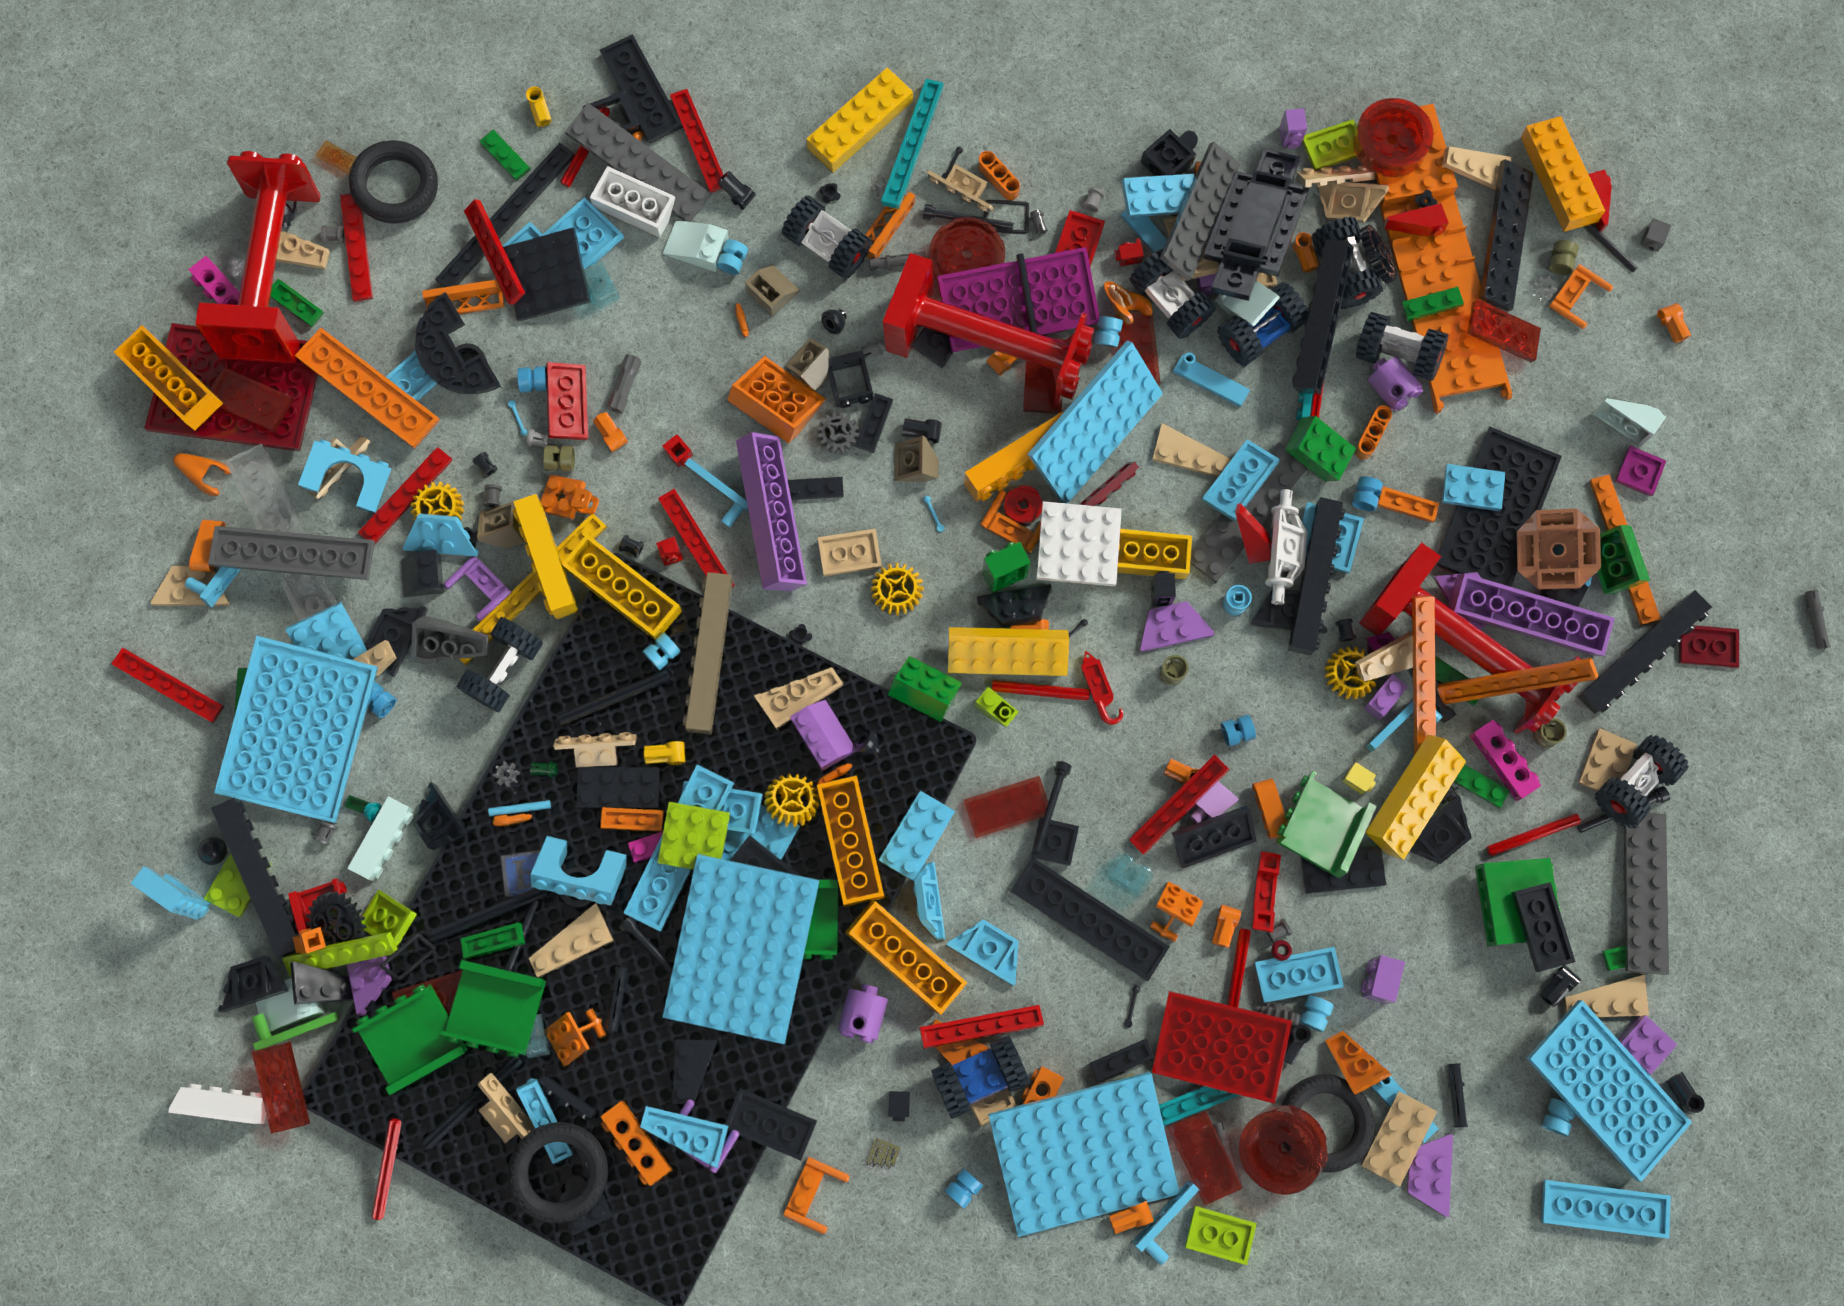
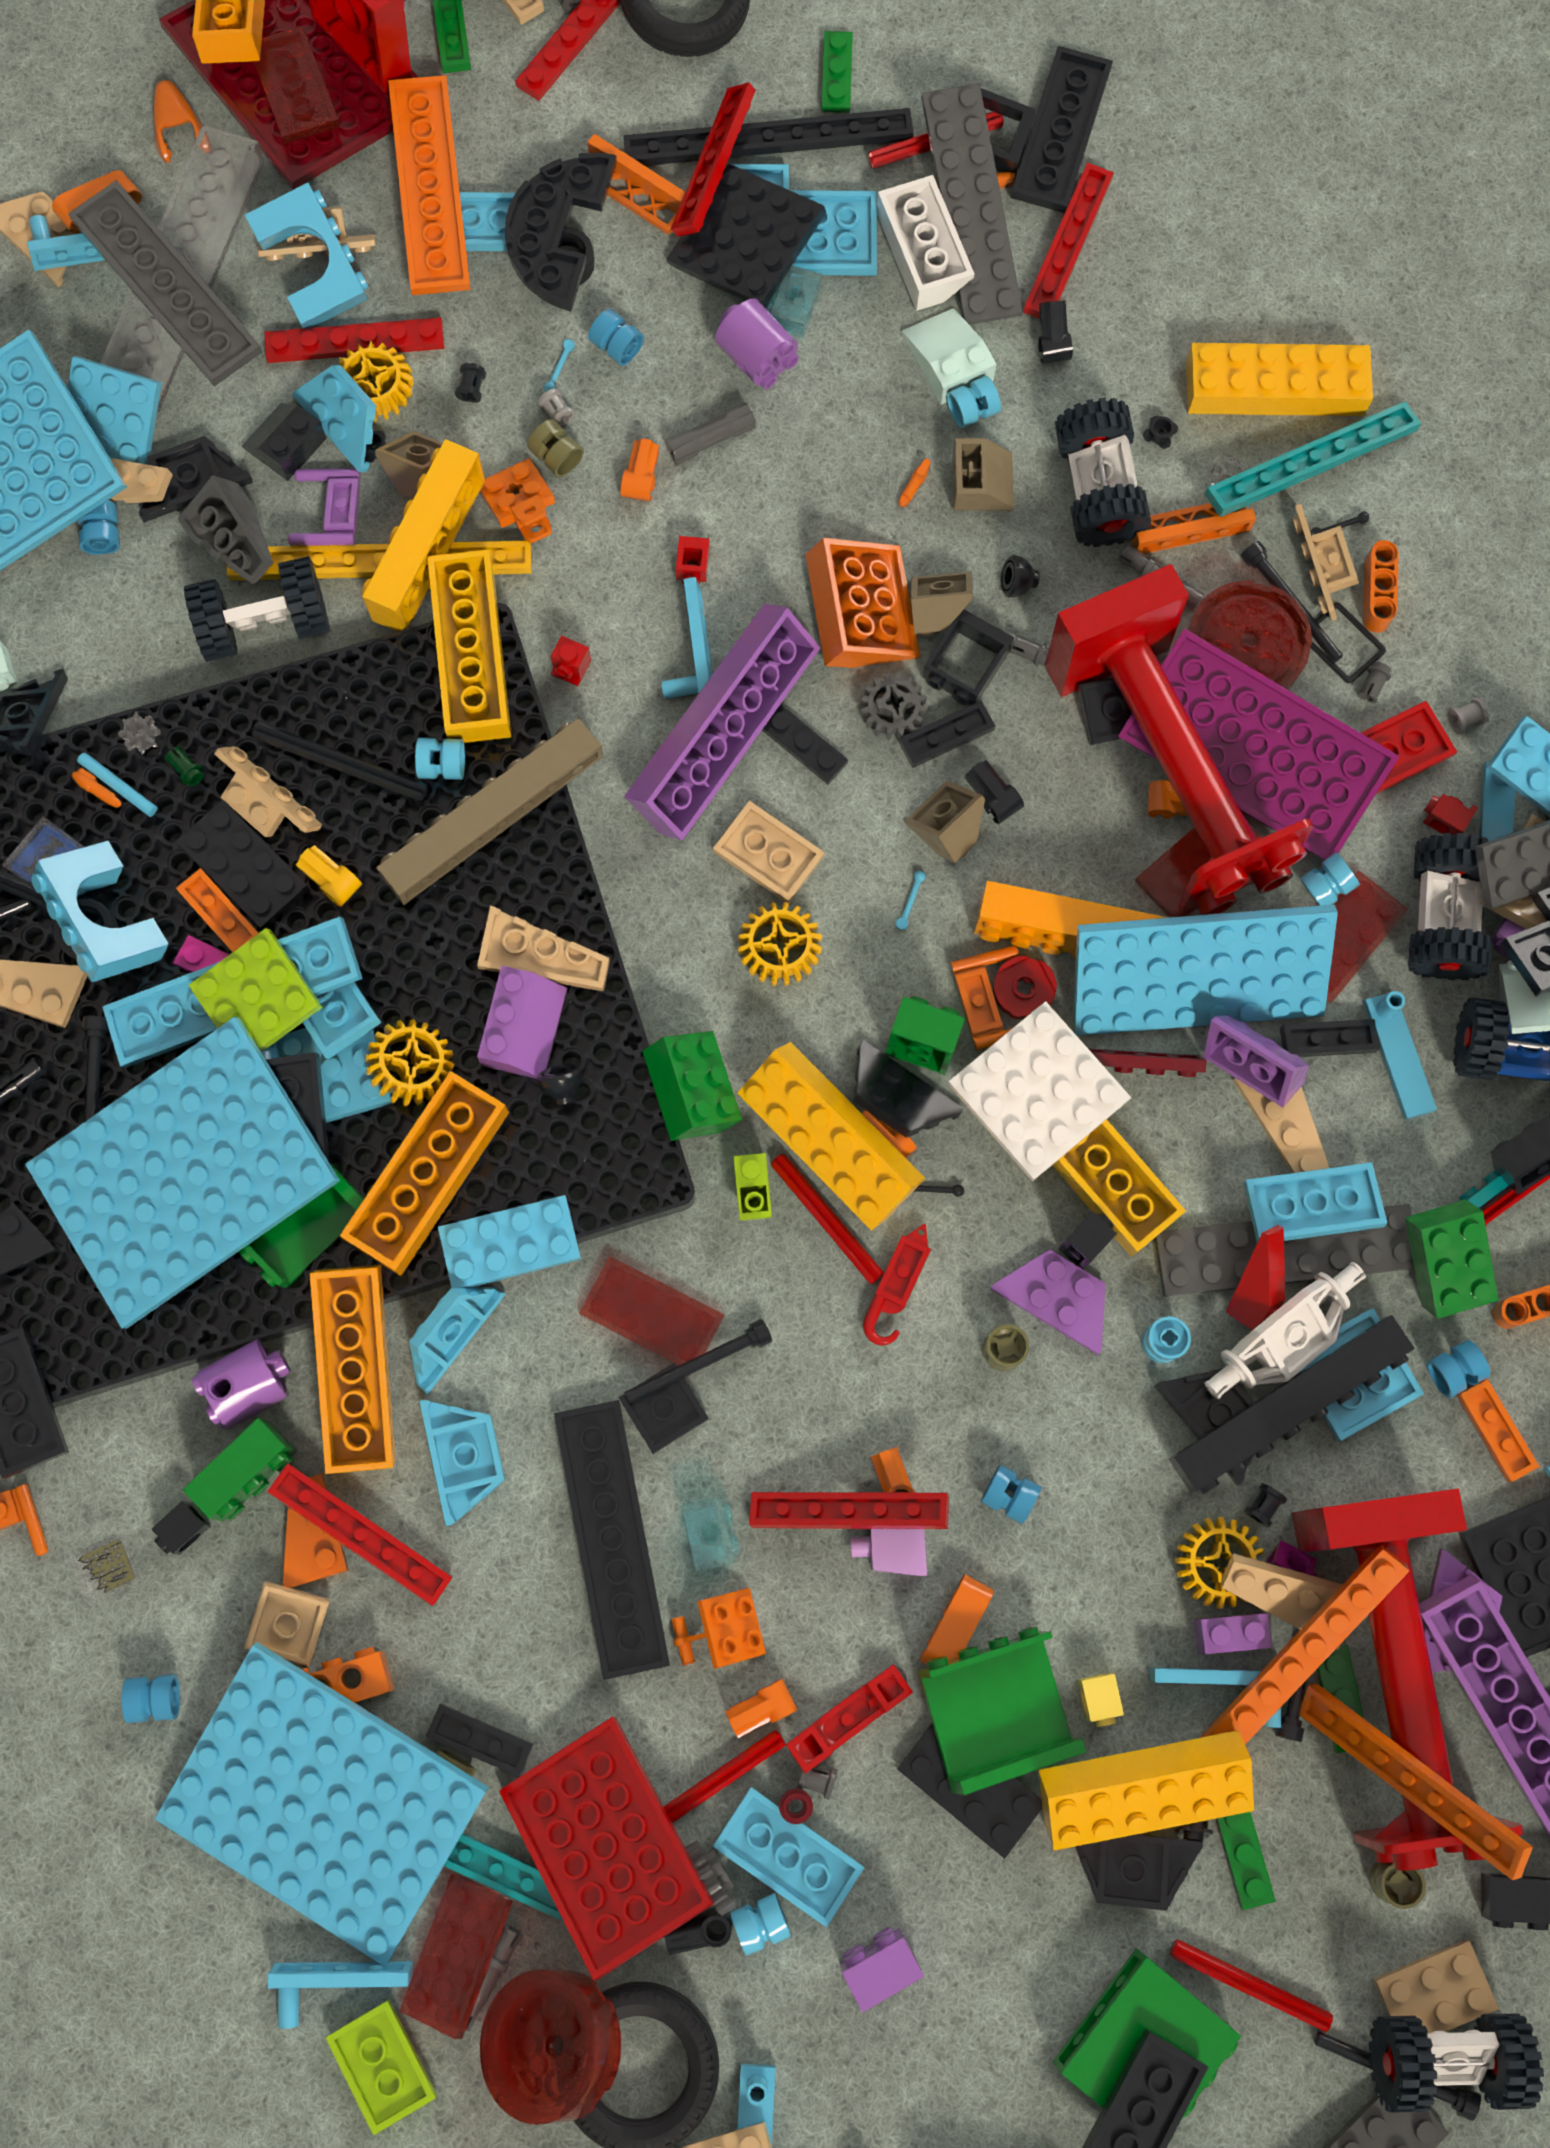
camera: 45 degrees right, 0 degrees up
(492, 495) = (444, 423): dark grey bush -> none
(538, 107) = (926, 49): yellow piece -> none
(566, 401) = (627, 393): plate -> none
(603, 321) = (756, 342): none -> medium lavender cylinder
(631, 546) = (535, 617): black bush -> none
(691, 533) = (614, 669): red plate -> none
(801, 629) = (613, 885): black plate -> none
(839, 771) = (497, 1083): orange piece -> none
(902, 1051) = (240, 1471): none -> green brick
(980, 1076) = (295, 1590): plate -> none
(1026, 293) = (1272, 746): black piece -> none
(1125, 300) = (1386, 863): orange animal -> none
(1128, 1023) = (533, 1704): black hinge -> none
(1133, 1216) = (301, 1934): orange piece -> none
(1155, 441) = (1254, 1059): none -> medium lavender slope
(1175, 401) = (1330, 1038): none -> black plate
(1214, 836) = (853, 1590): black plate -> none
(1355, 1063) = (743, 2034): orange wing -> none
(1494, 756) = (1293, 1875): dark pink brick -> none

